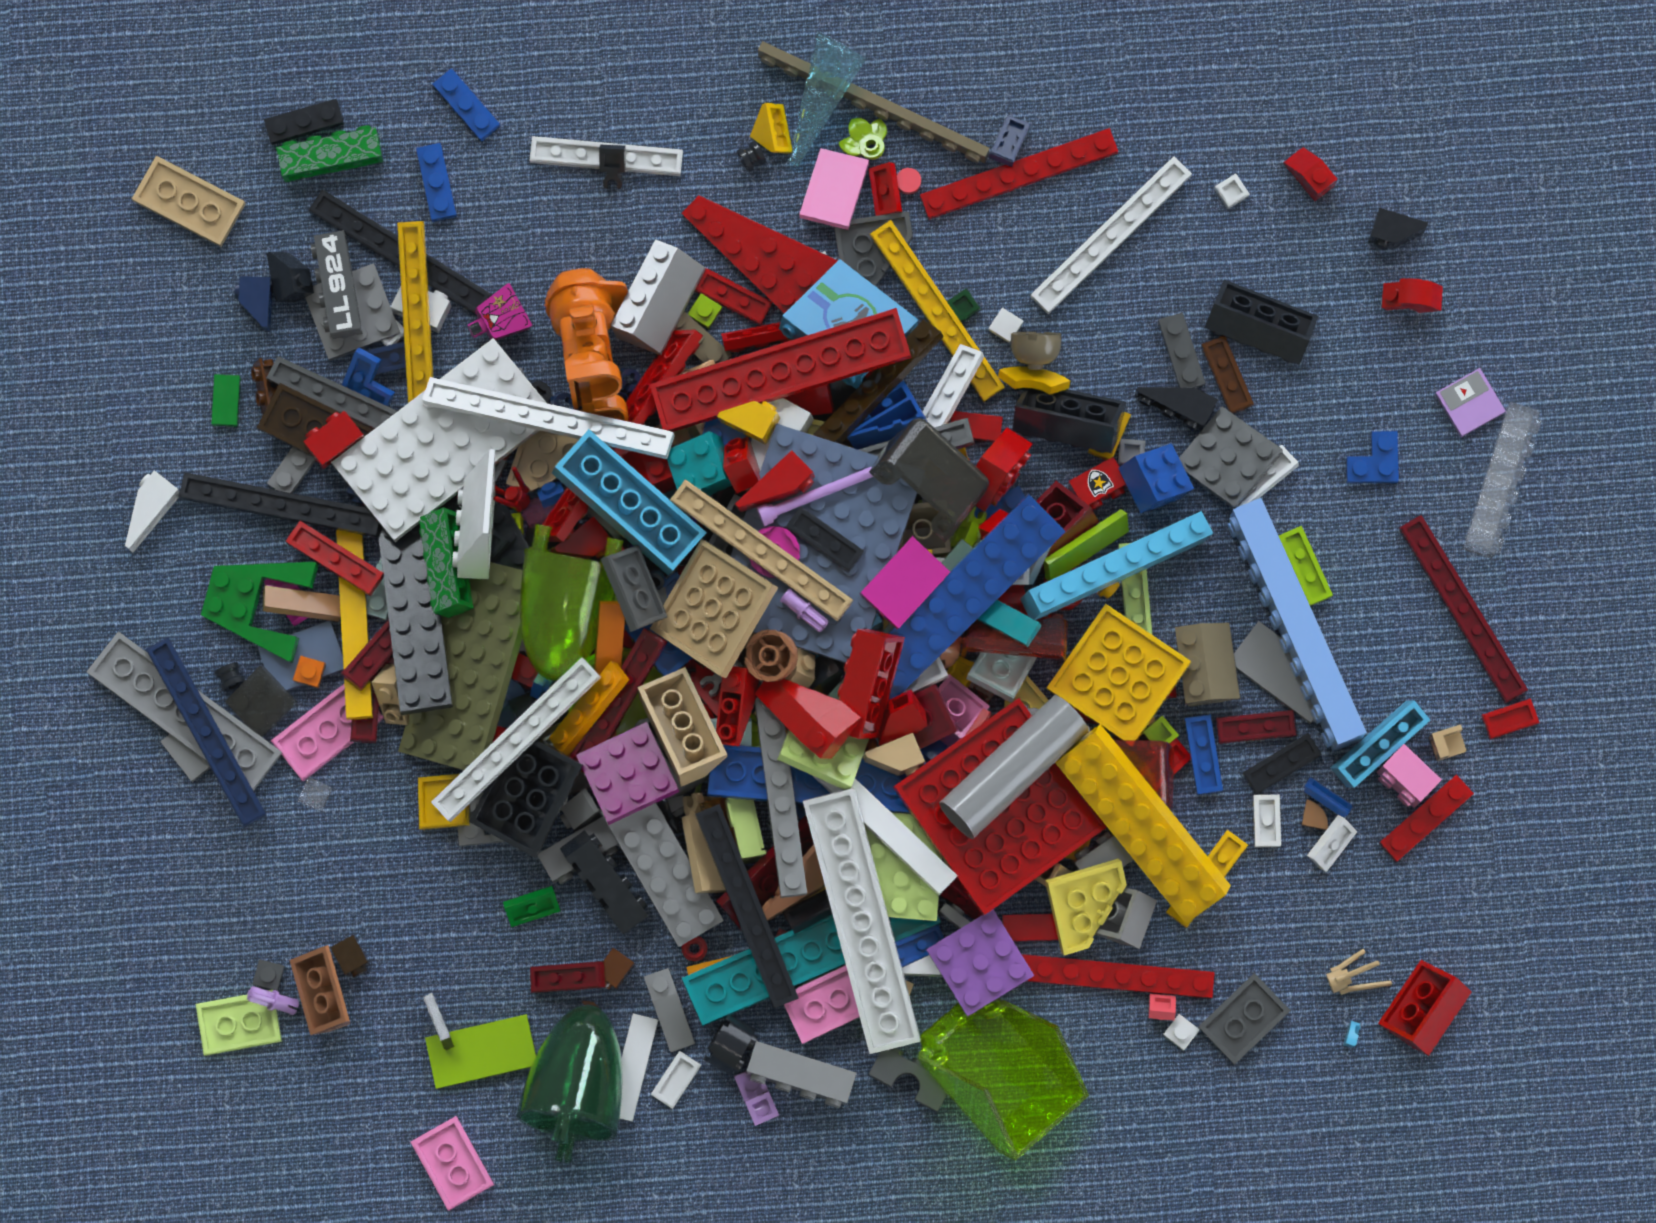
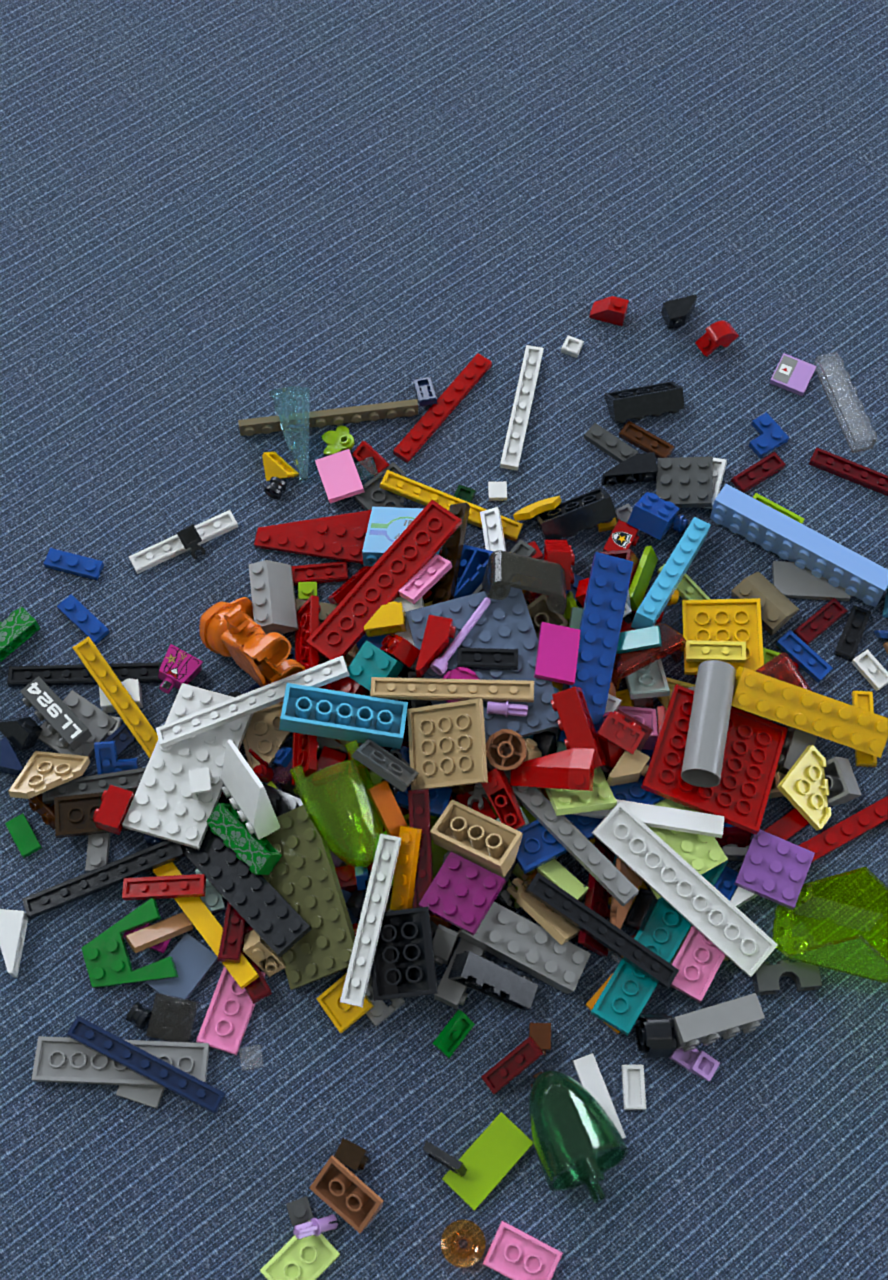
camera: 35 degrees left, 15 degrees down
(289, 348) = (46, 772): none -> tan plate
(309, 671) = (193, 975): orange plate -> none
(390, 1107) = (466, 1231): none -> clear orange dish
(437, 472) = (200, 781): none -> white panel
(669, 1010) = (595, 1040): light grey slope -> none
(697, 956) = (588, 986): red plate -> none
(826, 397) = (425, 578): none -> bright pink plate
(871, 199) = (366, 468): none -> clear light blue tile
(908, 181) = (381, 447): coral tile -> none
(910, 714) = (621, 733): none -> red bracket
(1035, 348) = (526, 488): dark tan cylinder -> none
(1093, 689) = (716, 650): none -> light yellow plate
(1185, 506) = (680, 523): none -> blue plate
(1328, 501) = (758, 472): none -> dark red tile

